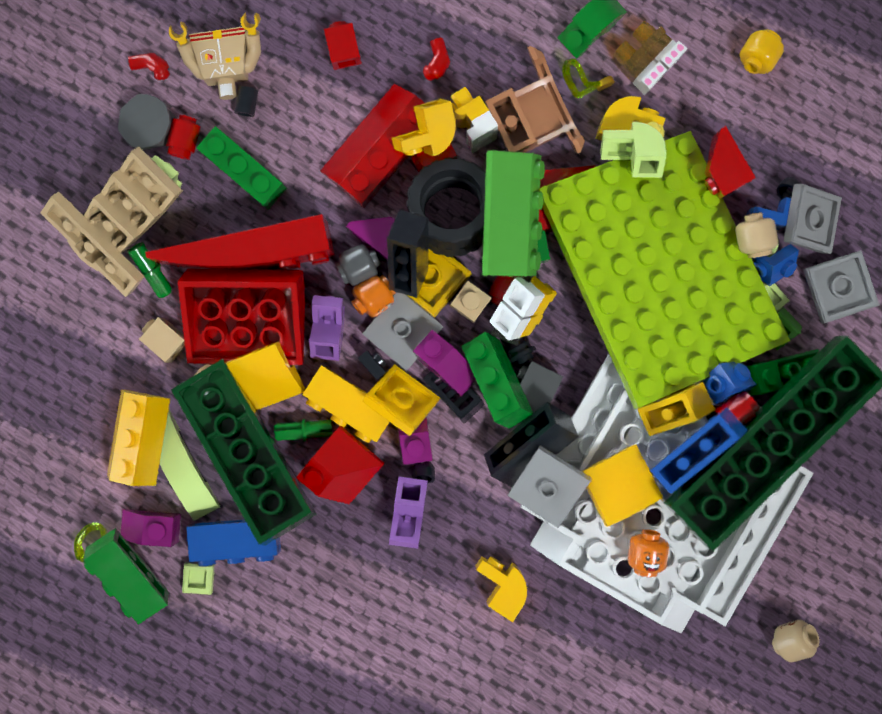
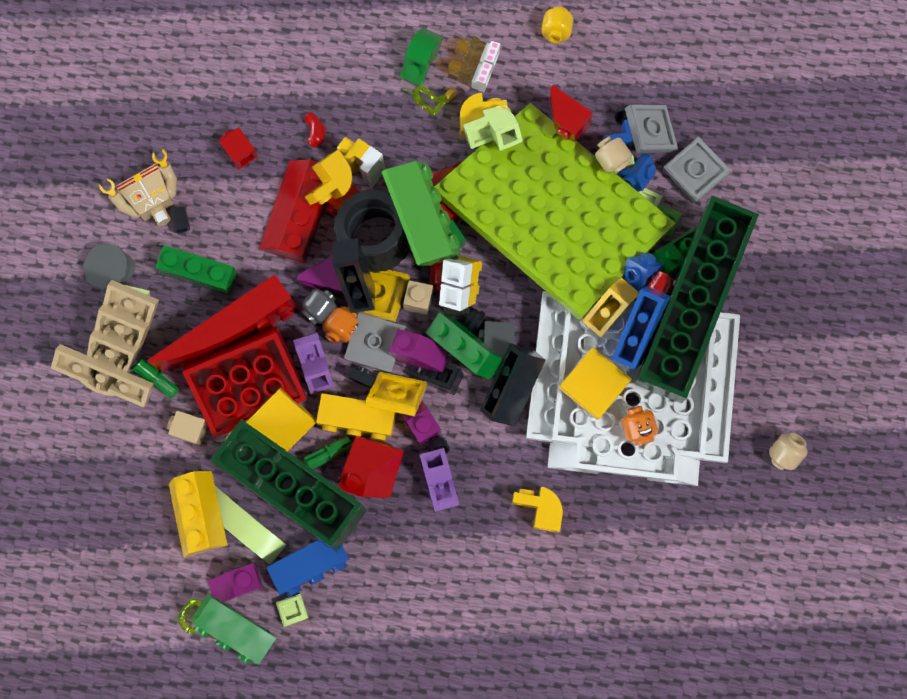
camera: 30 degrees left, 10 degrees down
(152, 62) = (93, 220): red arm -> none
(183, 137) = (141, 266): red brick -> none
(533, 112) = (406, 136): nougat piece -> none
(549, 486) = (540, 407): light grey plate -> none

